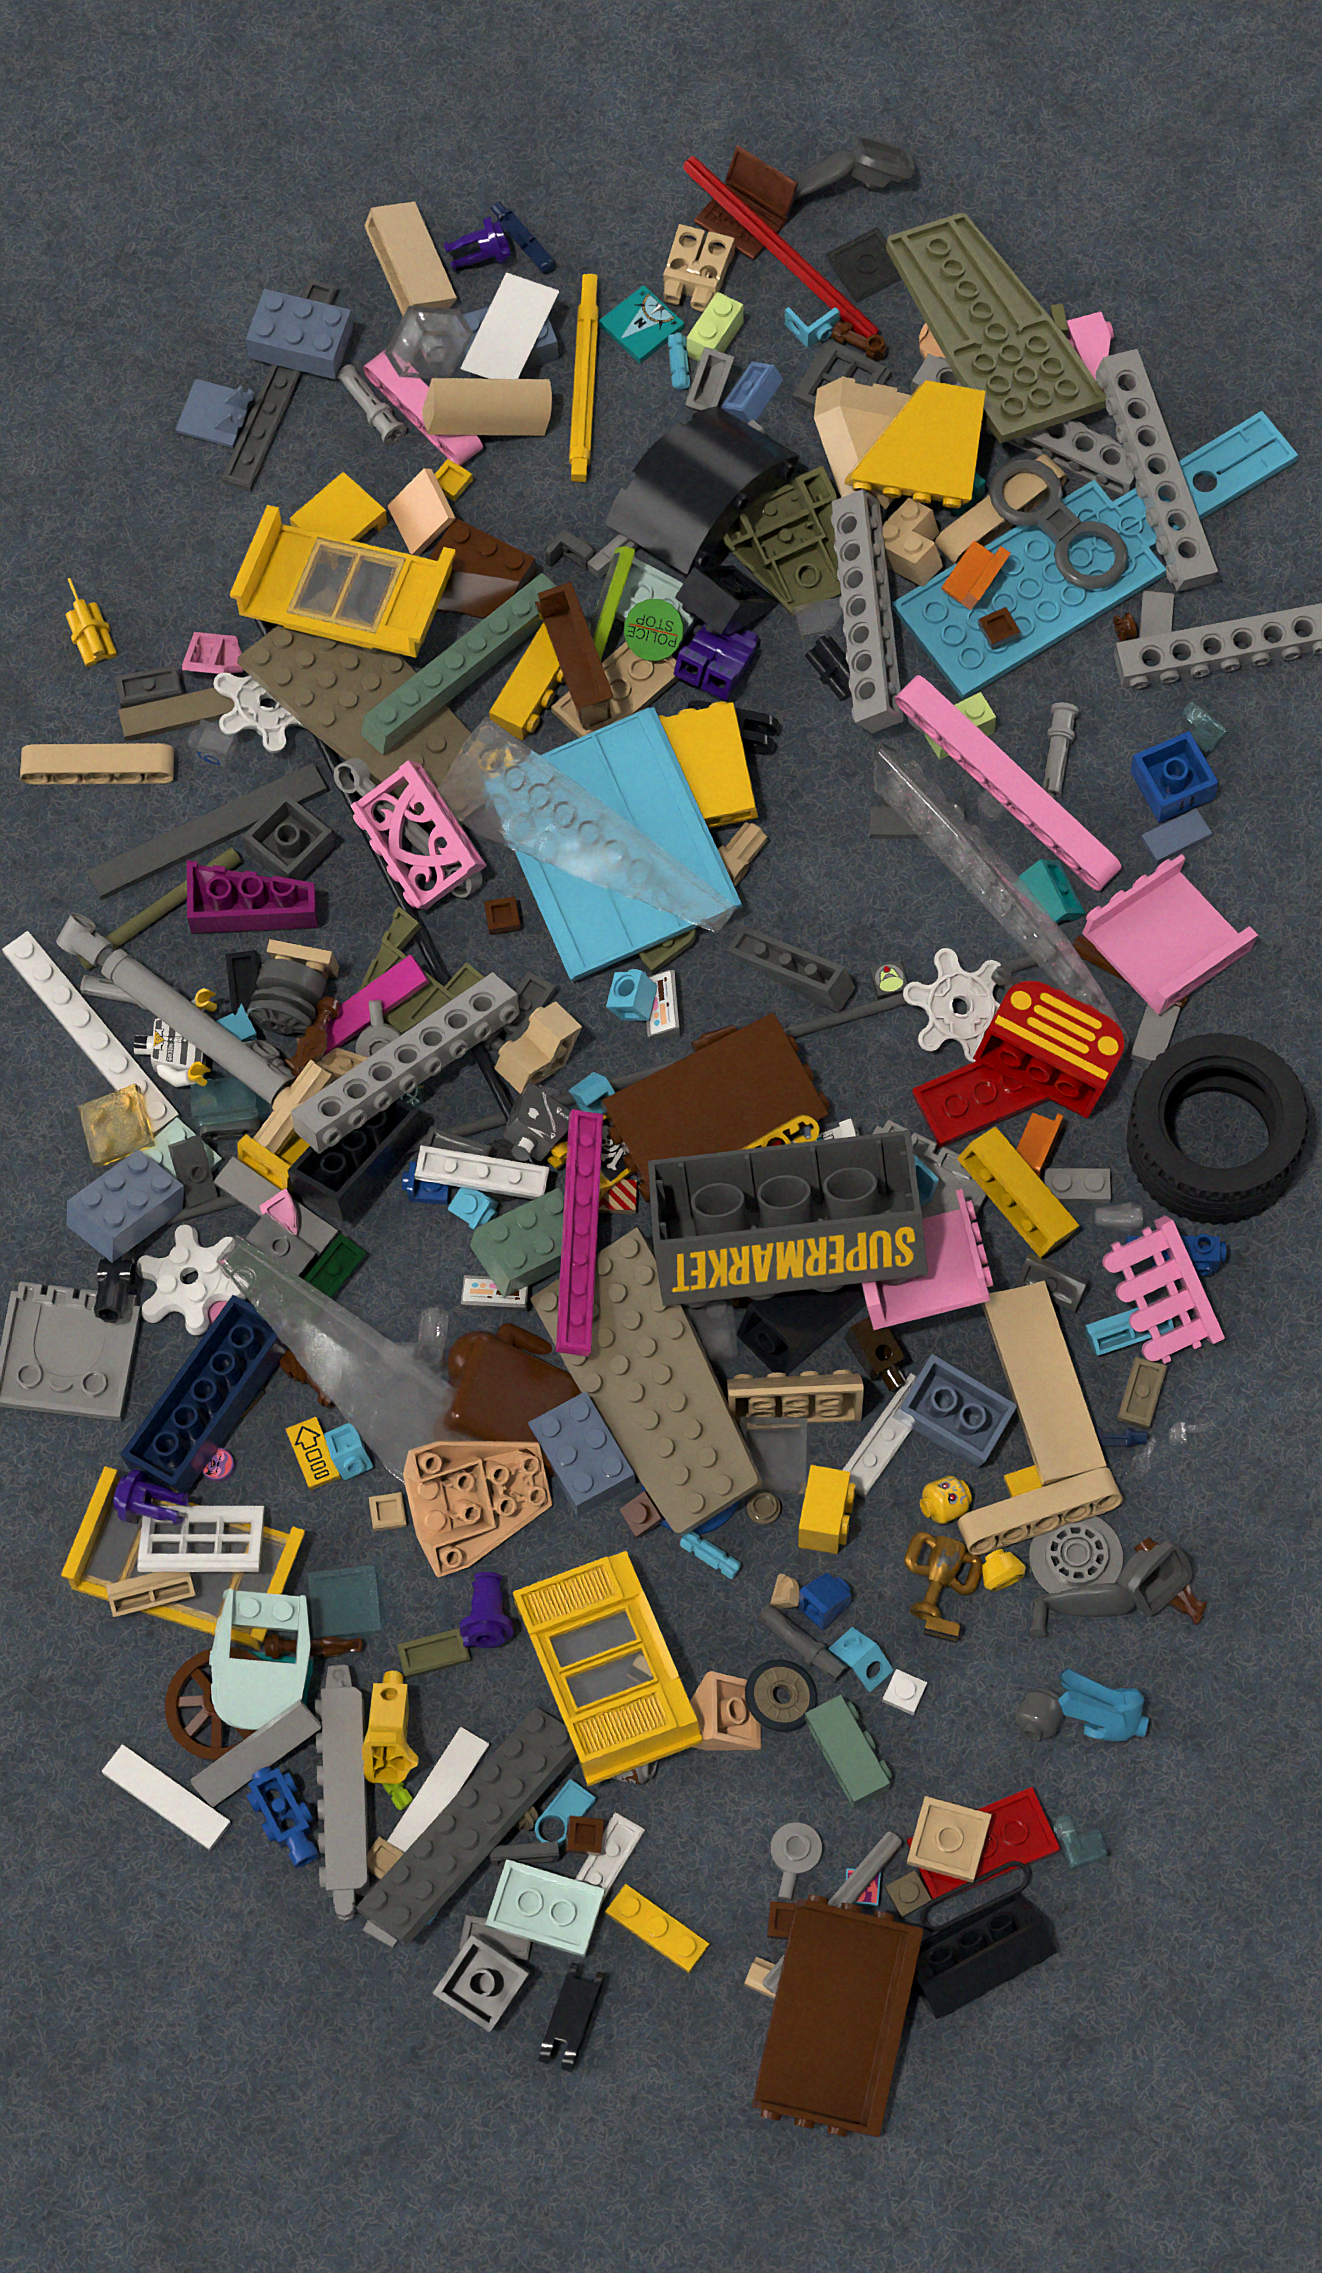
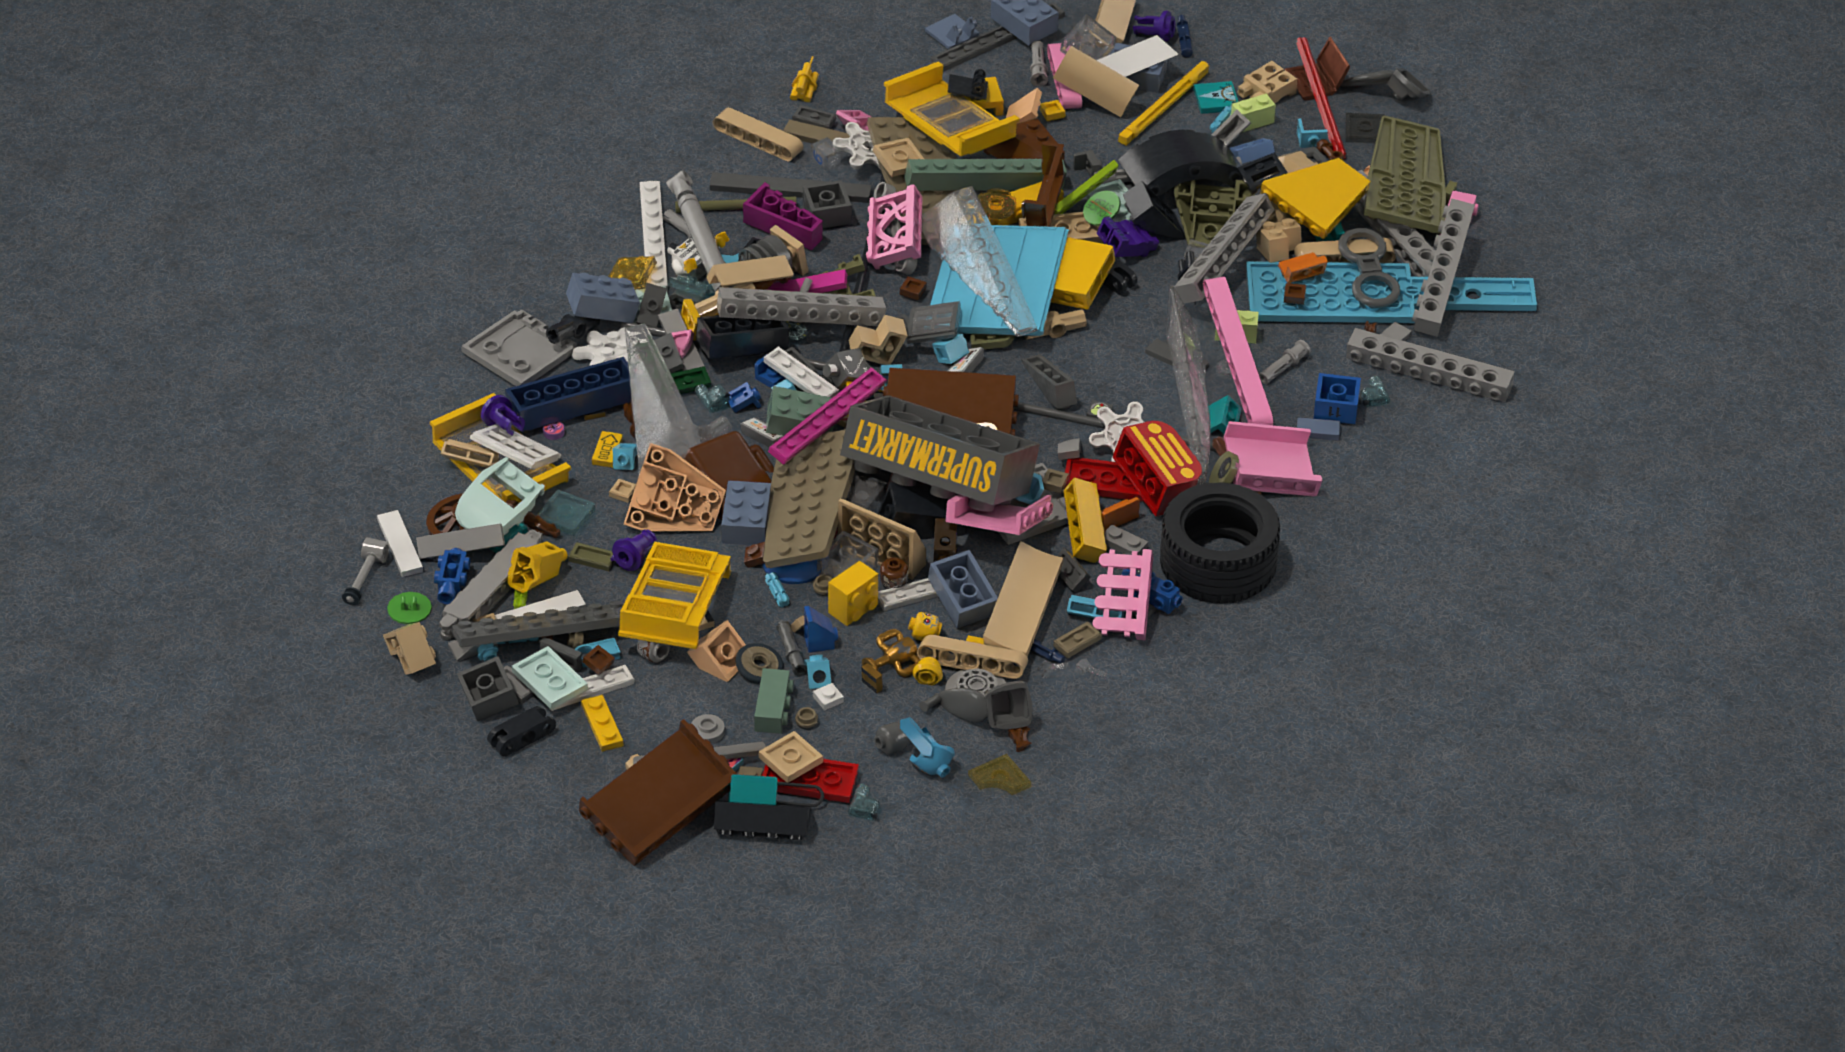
camera: 30 degrees right, 25 degrees down
(148, 1840) = (373, 551): none -> light grey piece
(261, 1898) = (409, 608): none -> bright green piece
(308, 1051) = (750, 271): none -> tan panel
(327, 1977) = (411, 647): none -> tan brick
(329, 518) = (970, 87): none -> black hinge
(336, 707) = (895, 155): none -> tan plate
(387, 1279) = (713, 398): none -> clear light blue piece
(426, 1251) = (744, 396): none -> blue bracket
(515, 690) = (999, 211): none -> clear yellow tile
(586, 970) = (933, 322): none -> clear piece
(823, 447) = (1259, 169): none -> black plate
(844, 1447) = (893, 573): none -> reddish brown head
(905, 1074) = (1069, 449): none -> light grey slope
(906, 1748) = (806, 717): none -> dark tan plate
(933, 1148) = (1055, 480): none -> dark tan plate
(950, 1934) = (753, 789): none -> teal panel
(1129, 995) = (1224, 468): none -> olive tile
(1207, 1678) = (1000, 774): none -> clear yellow tile

